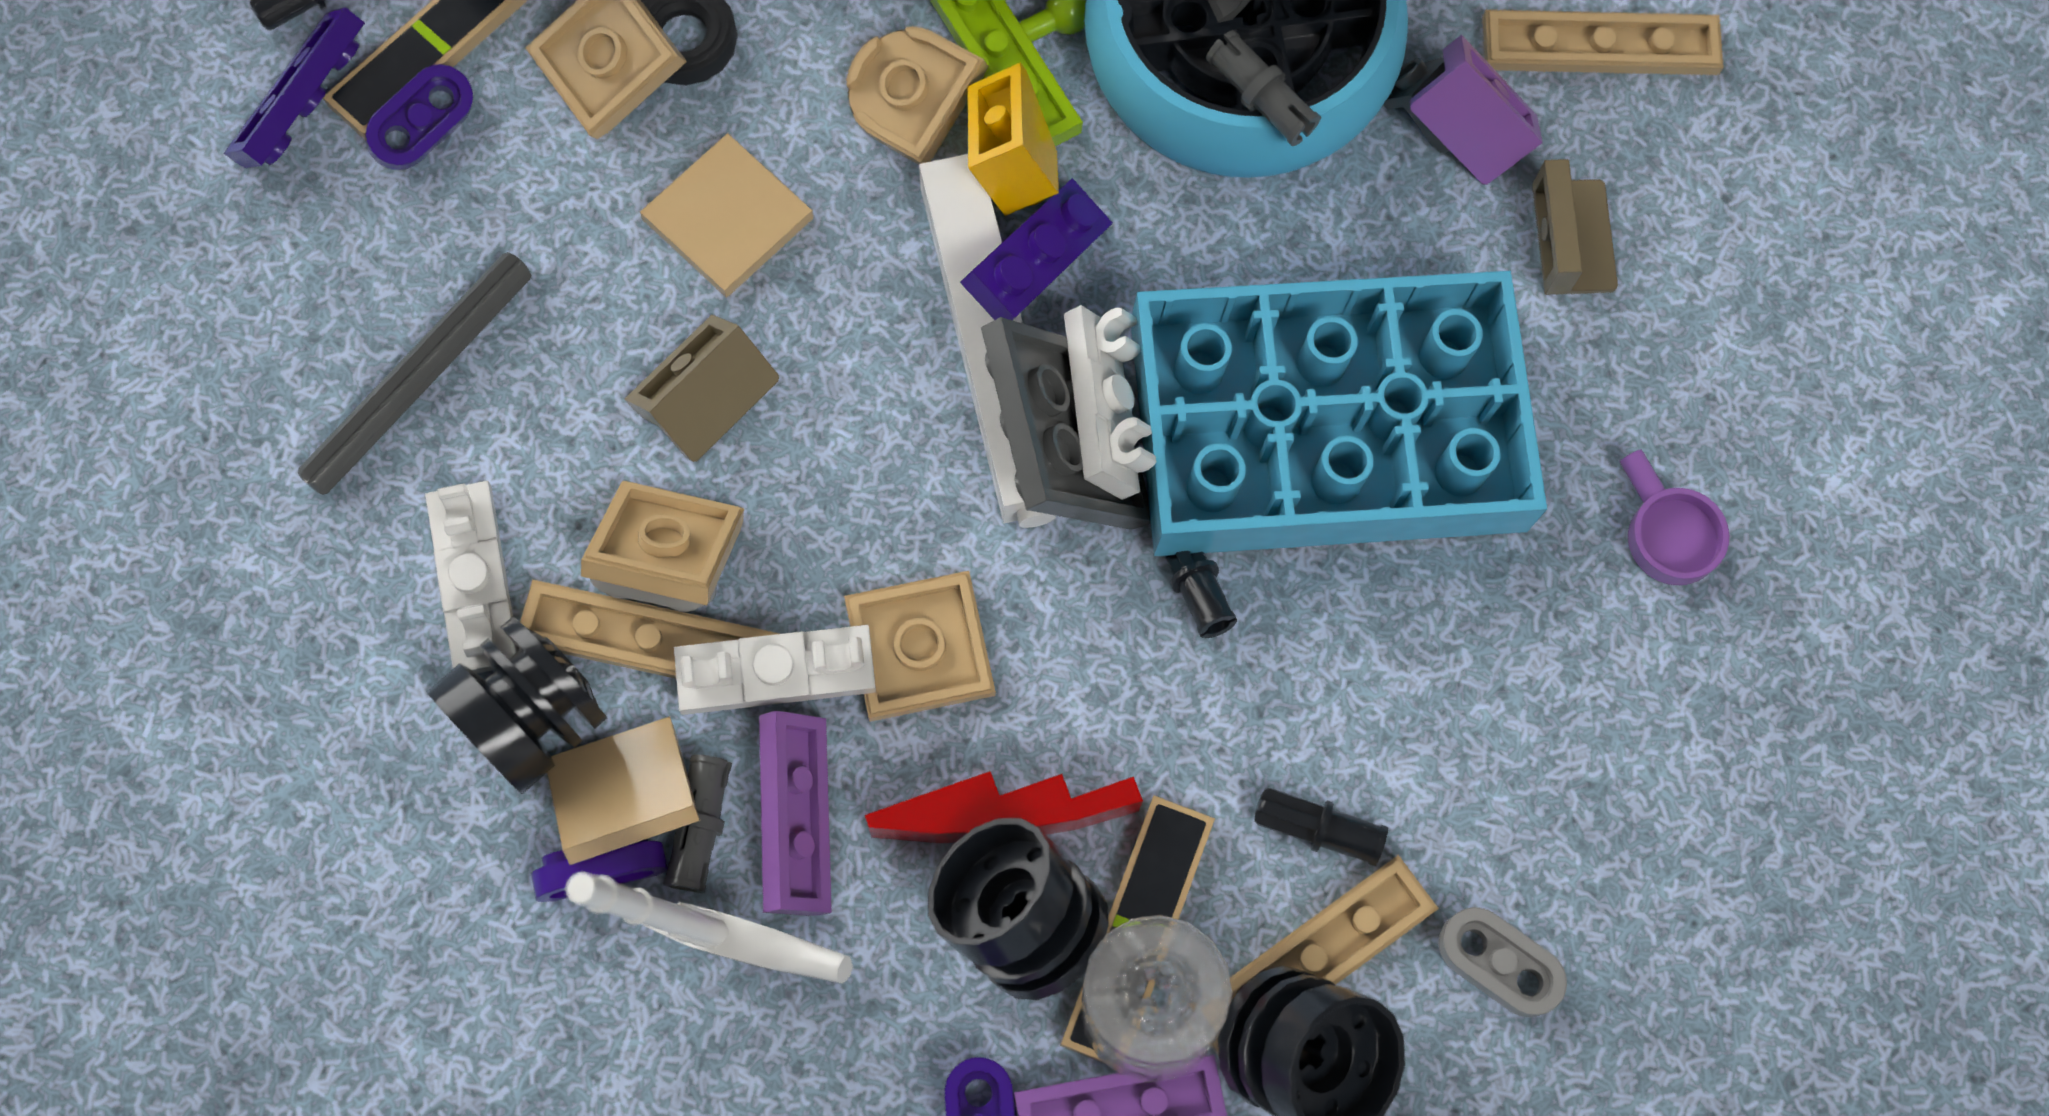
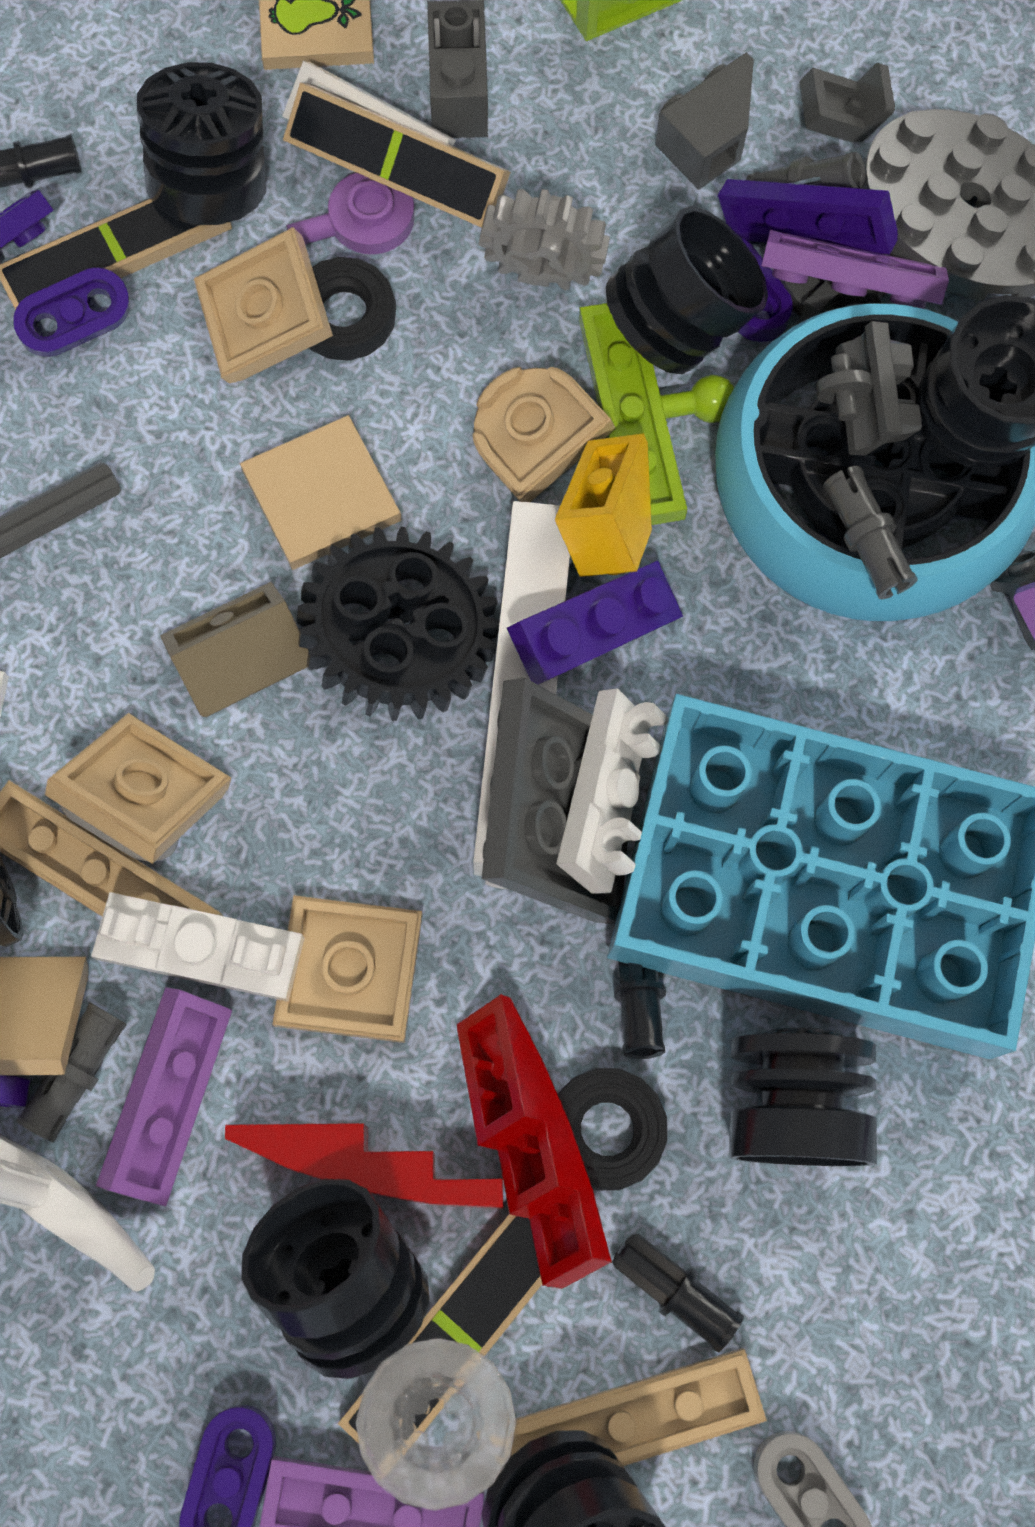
camera: 20 degrees right, 0 degrees up
(890, 344) = (372, 579): none -> black gear
(1151, 739) = (537, 1151): none -> red slope
(1236, 680) = (646, 1114): none -> black tyre
(1371, 605) = (803, 1099): none -> black wheel

